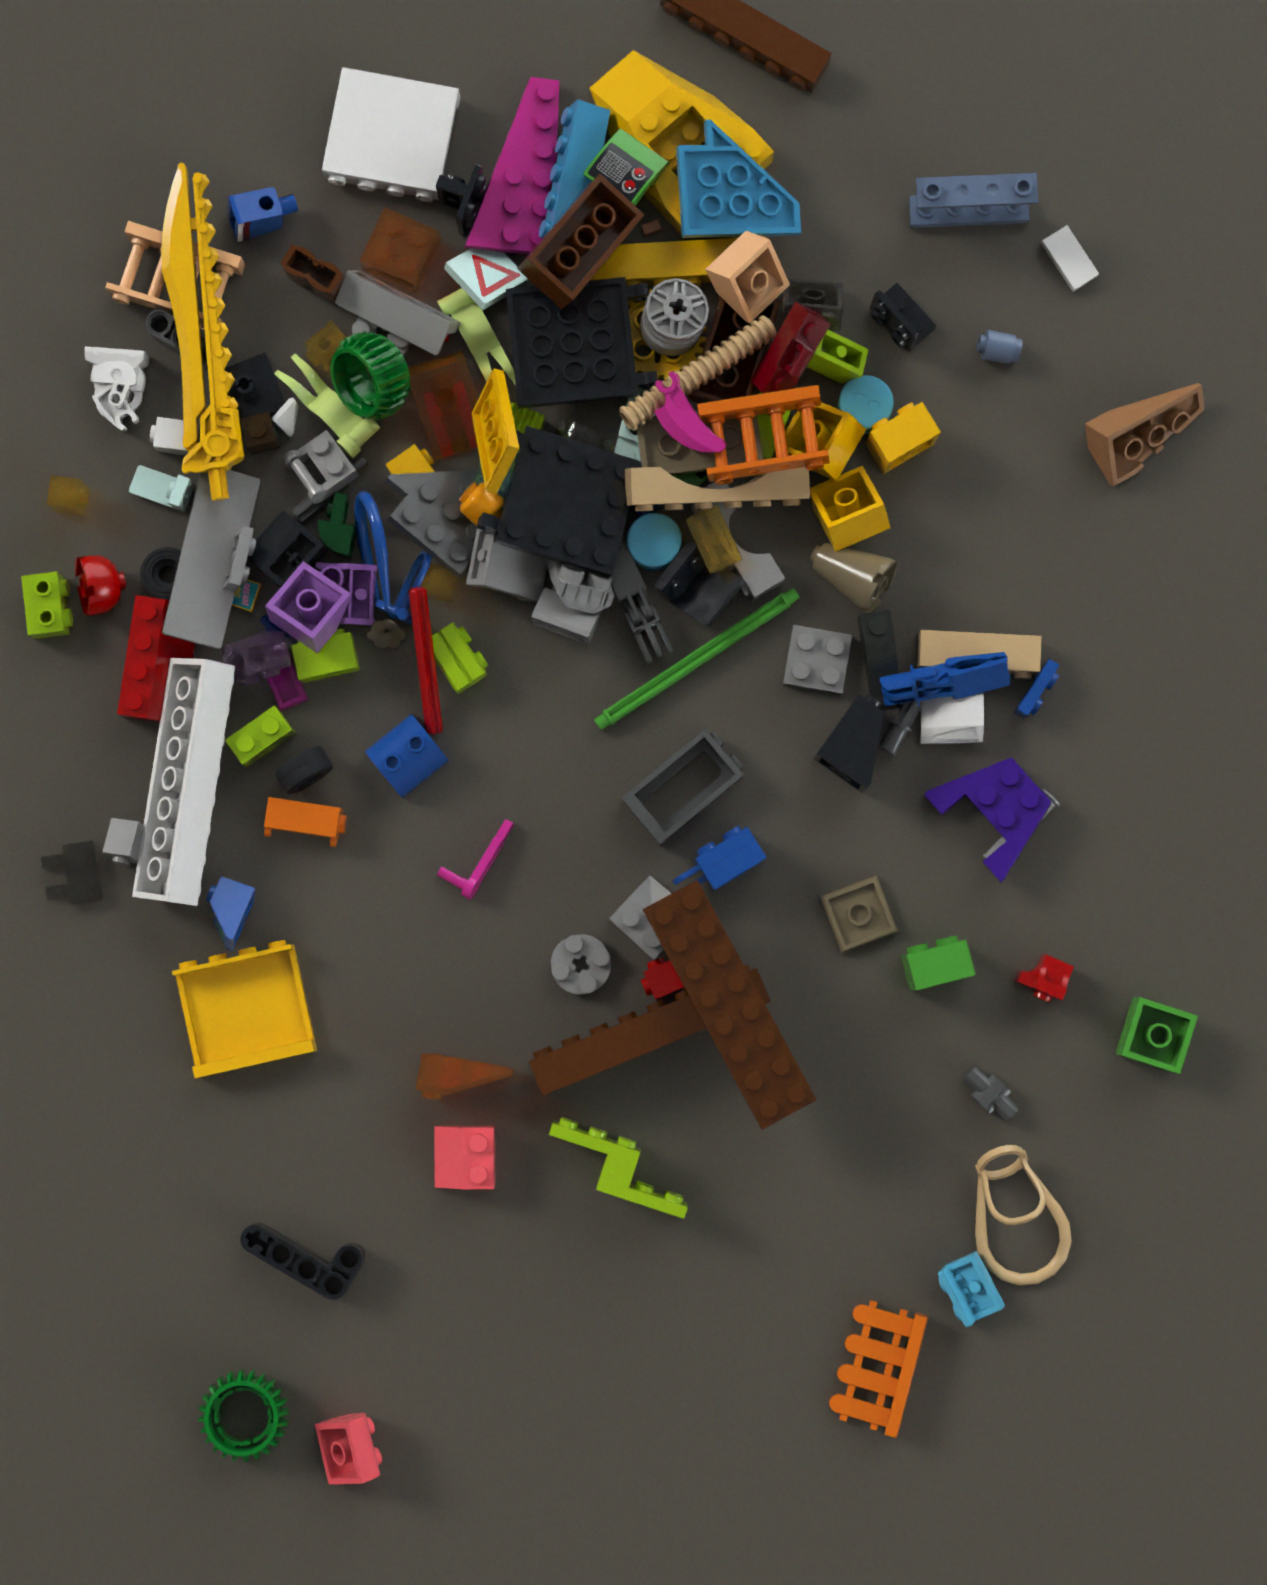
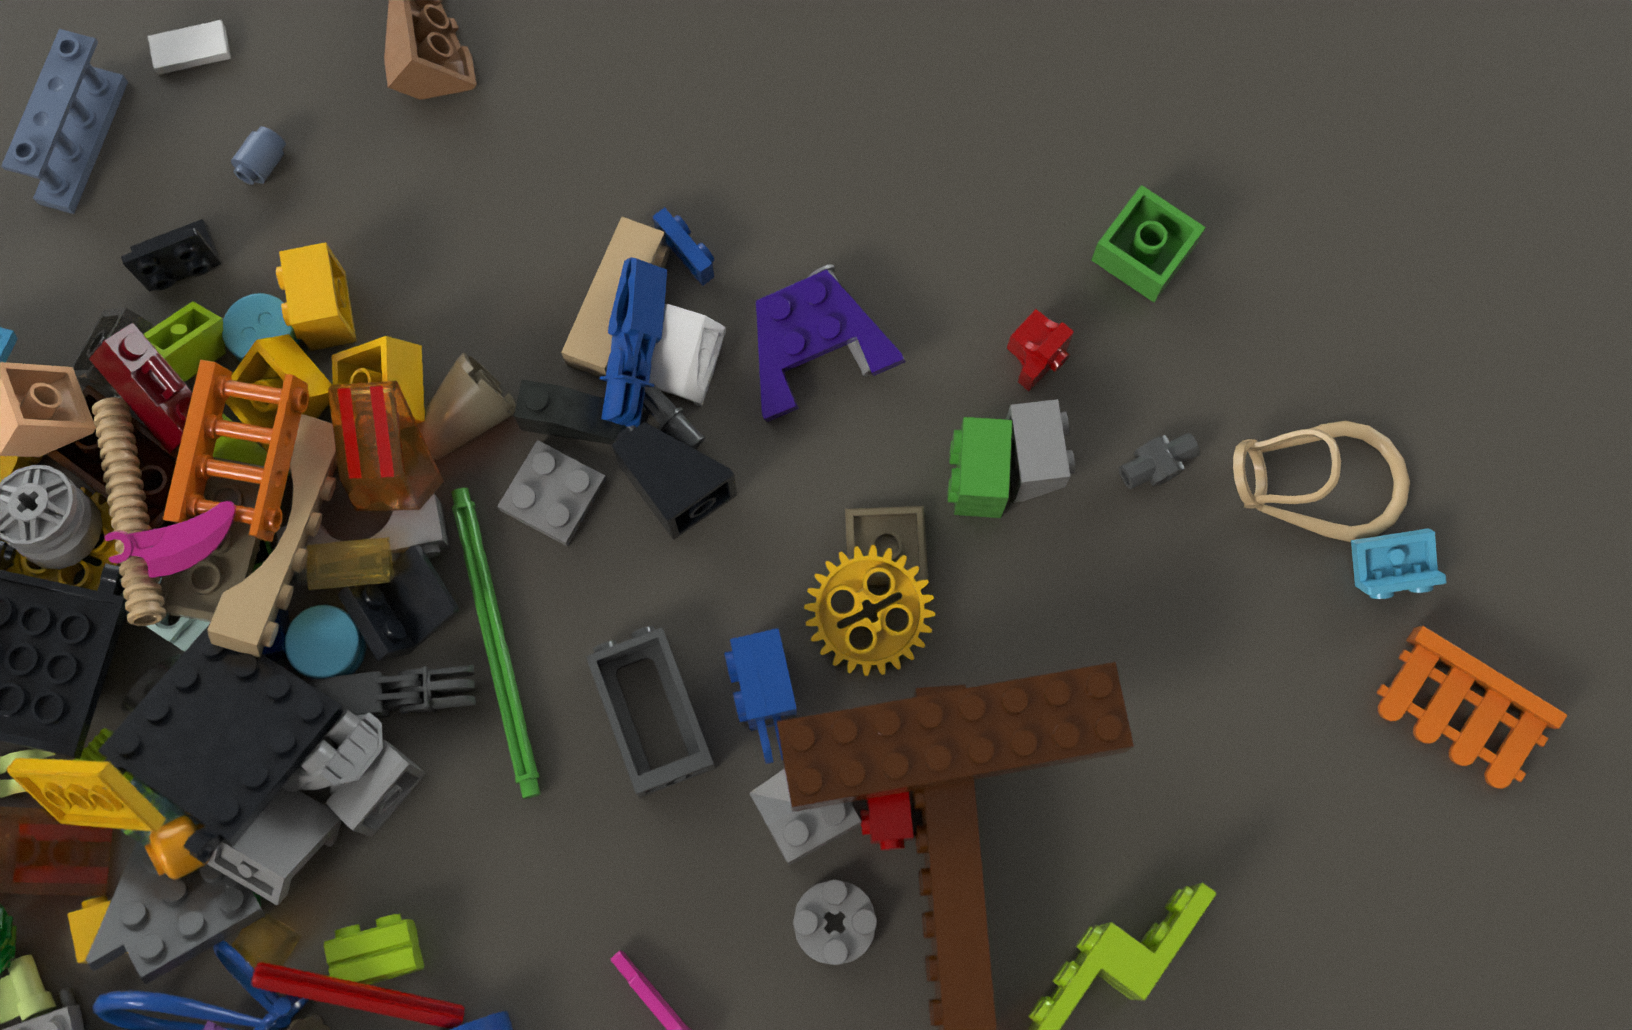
camera: 70 degrees left, 10 degrees down
(801, 531) = (380, 448): none -> clear orange slope
(824, 897) = (886, 643): none -> yellow gear
(964, 1000) = (1039, 449): none -> light grey slope

